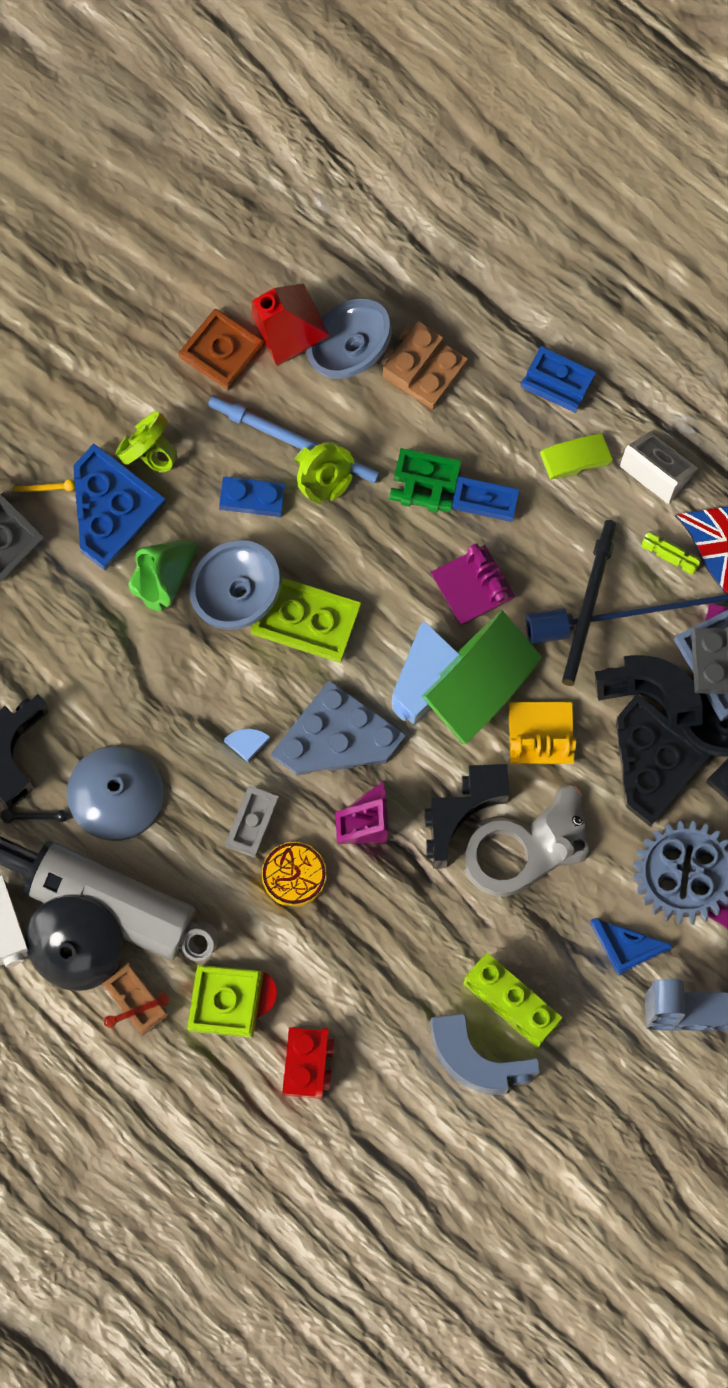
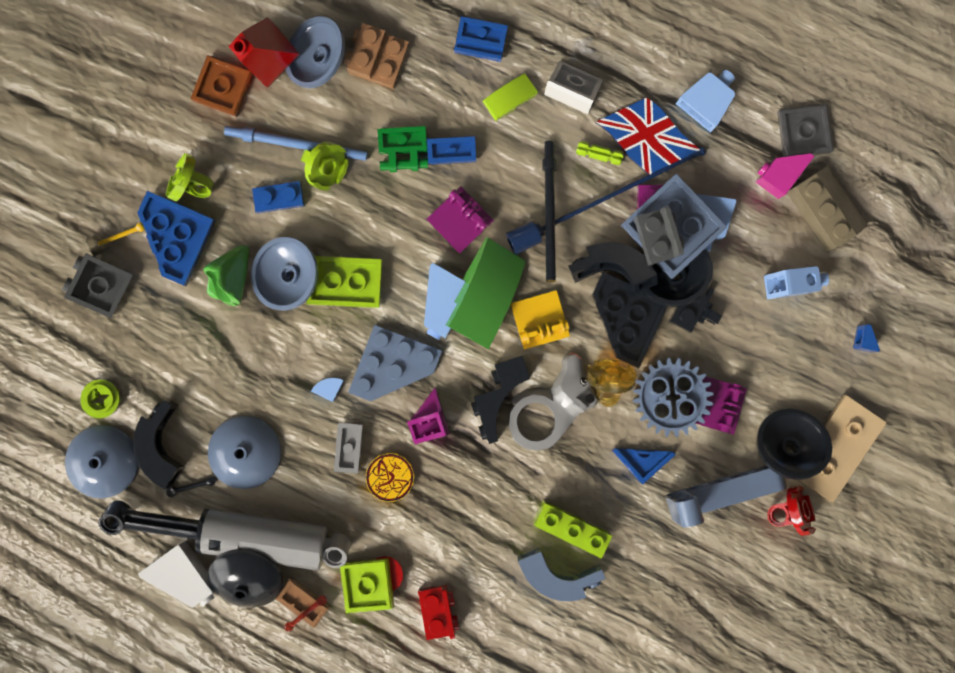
camera: 10 degrees left, 15 degrees up
(611, 824) = (611, 378): none -> clear yellow tile

